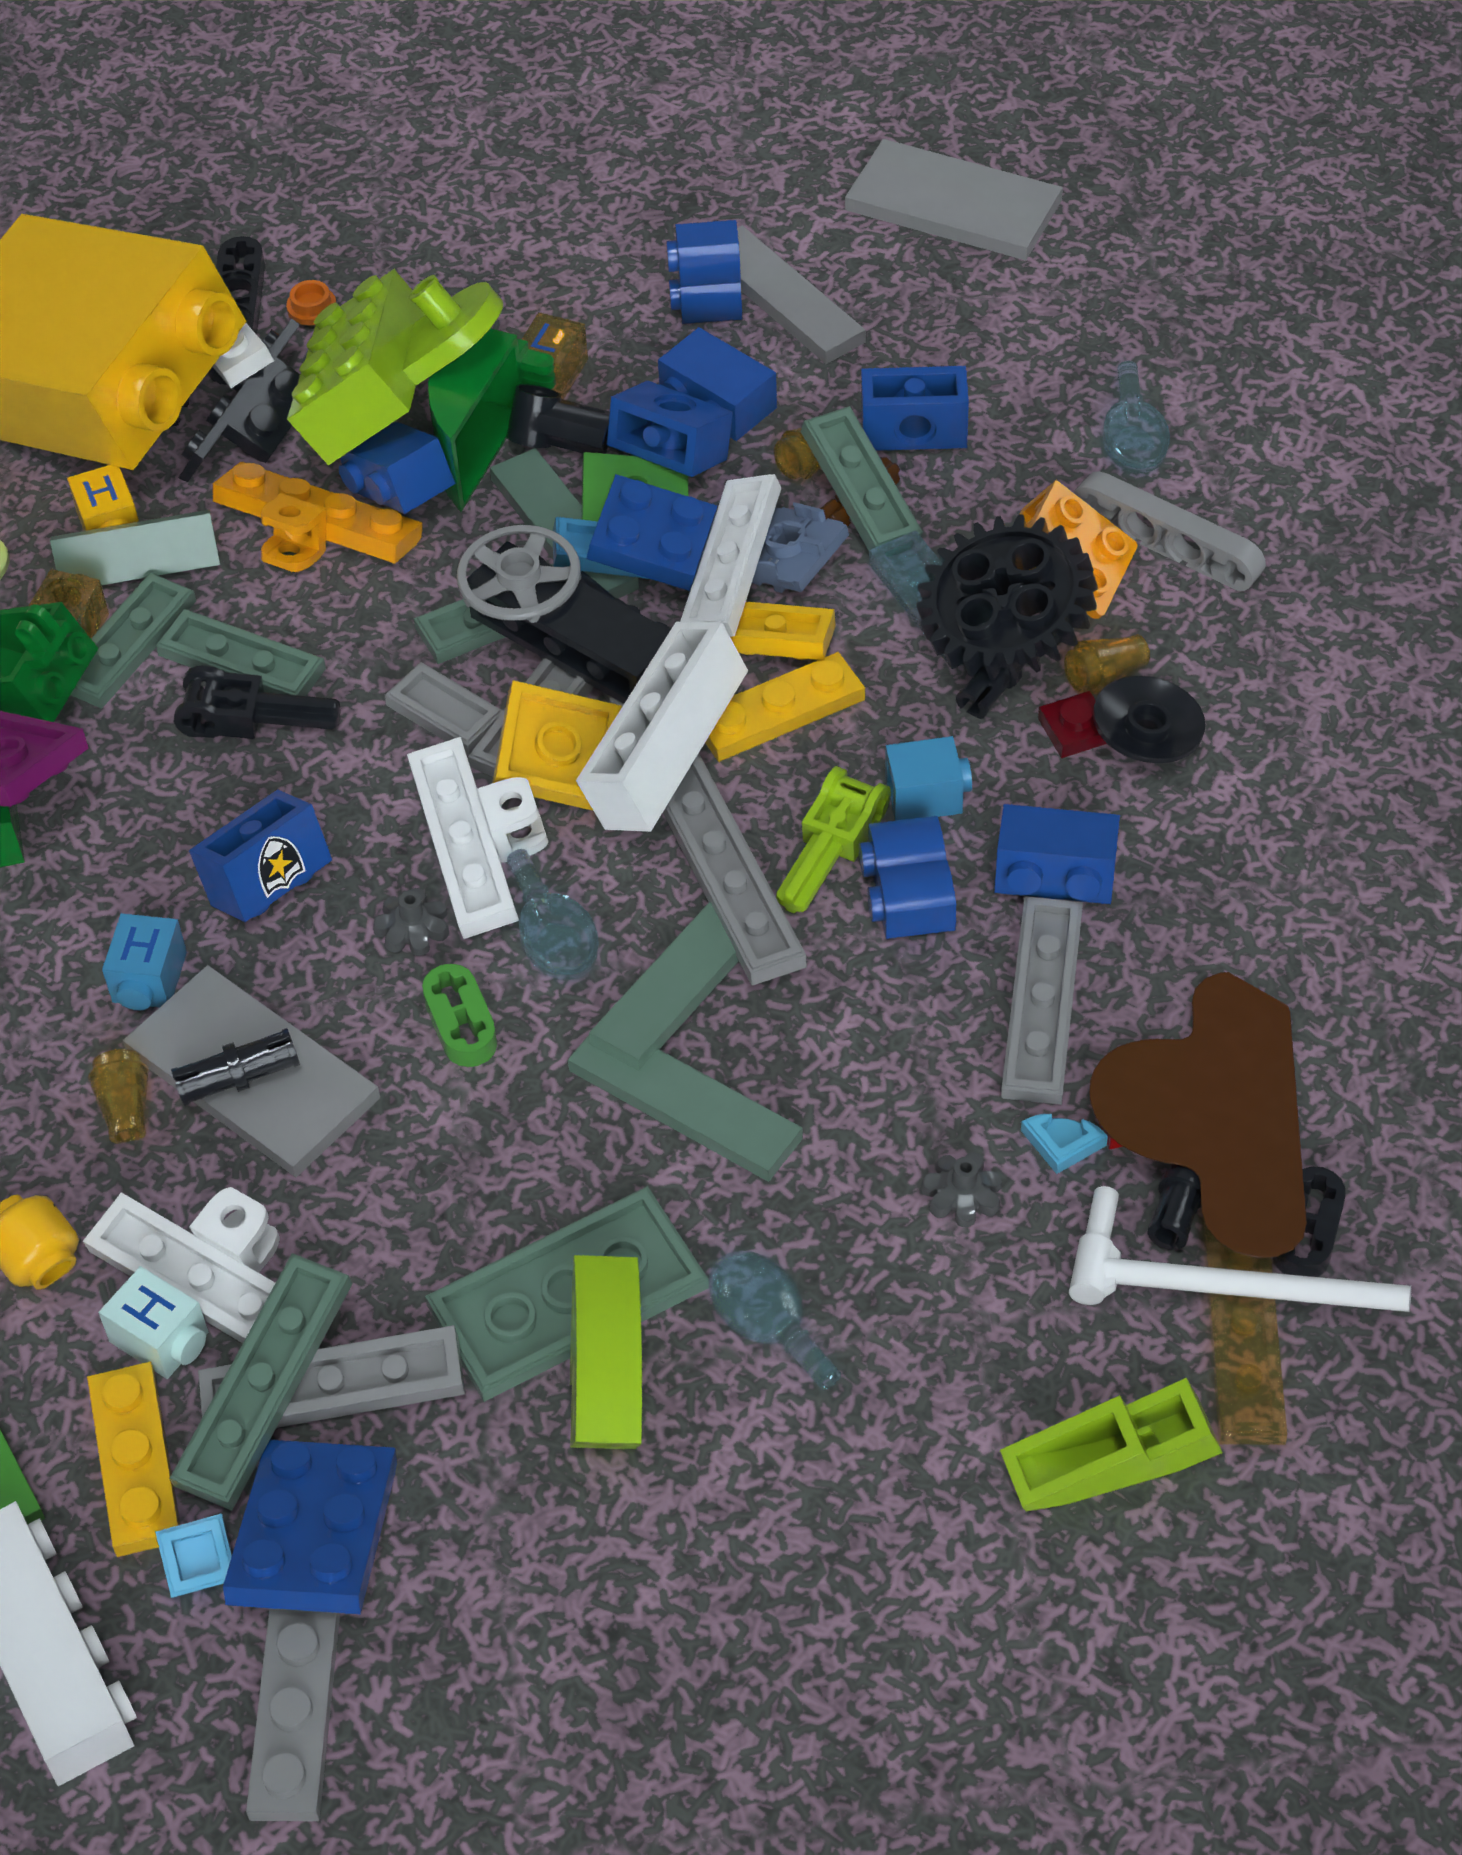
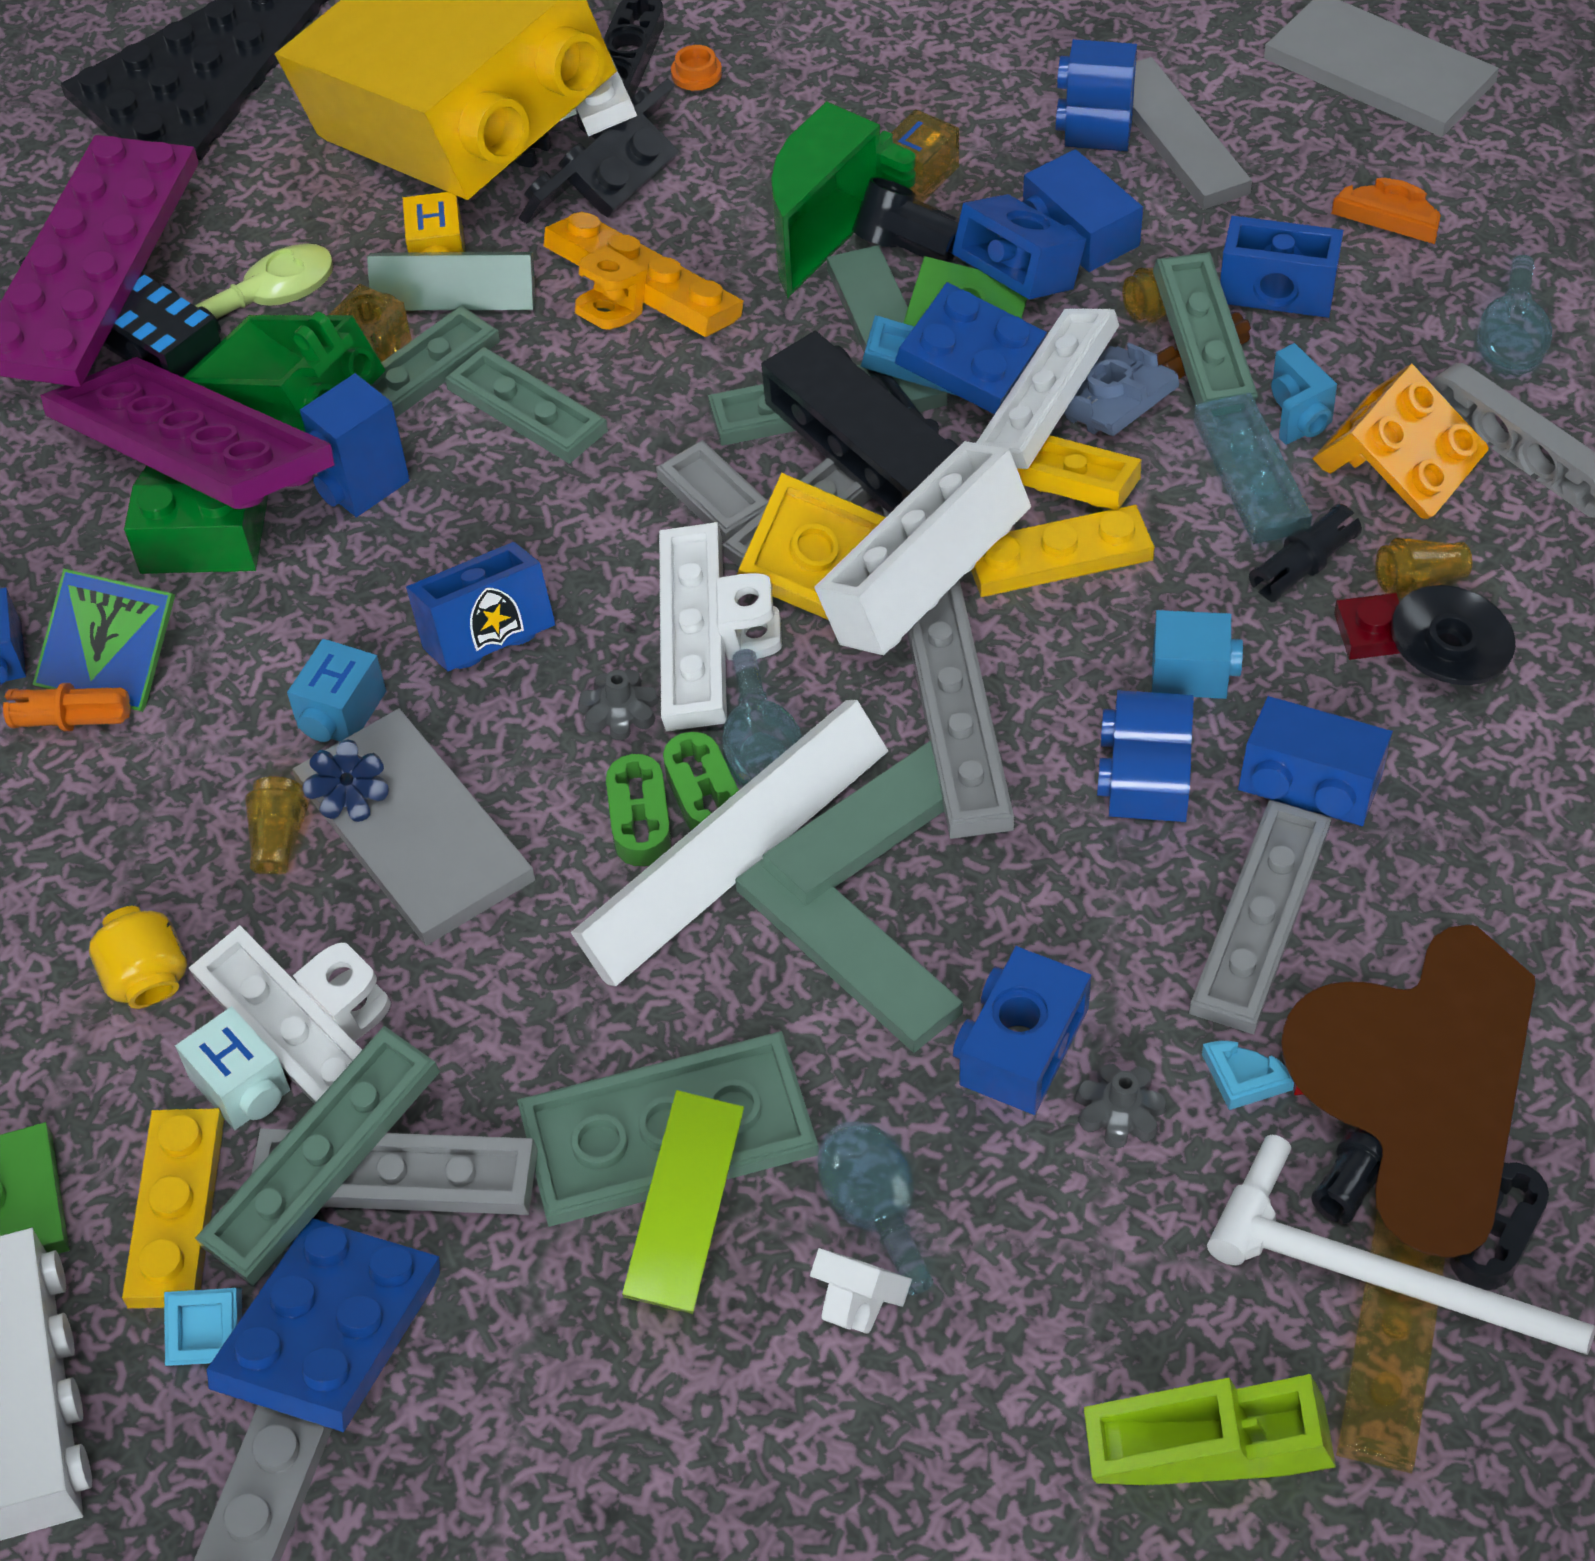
camera: 15 degrees right, 0 degrees up
(108, 713) = (363, 445): none -> blue brick
(182, 1038) = (346, 781): none -> dark blue plant
(235, 1067) = (391, 818): black pin -> none
(237, 703) = (509, 449): black connector -> none
(376, 353) = (734, 122): lime brick -> none
(397, 468) = (728, 238): blue brick -> none
(503, 988) = (690, 789): none -> bright green beam
(518, 572) = (816, 363): light grey wheel -> none
(553, 1028) = (729, 843): none -> white tile
(778, 1393) = (856, 1290): none -> white tile
(832, 830) = (1076, 691): lime connector -> none
(869, 1109) = (1022, 1064): none -> blue brick
(957, 512) = (1302, 393): none -> dark azure bracket
(998, 335) = (1390, 206): none -> orange plate
(1007, 597) = (1327, 477): black gear -> none

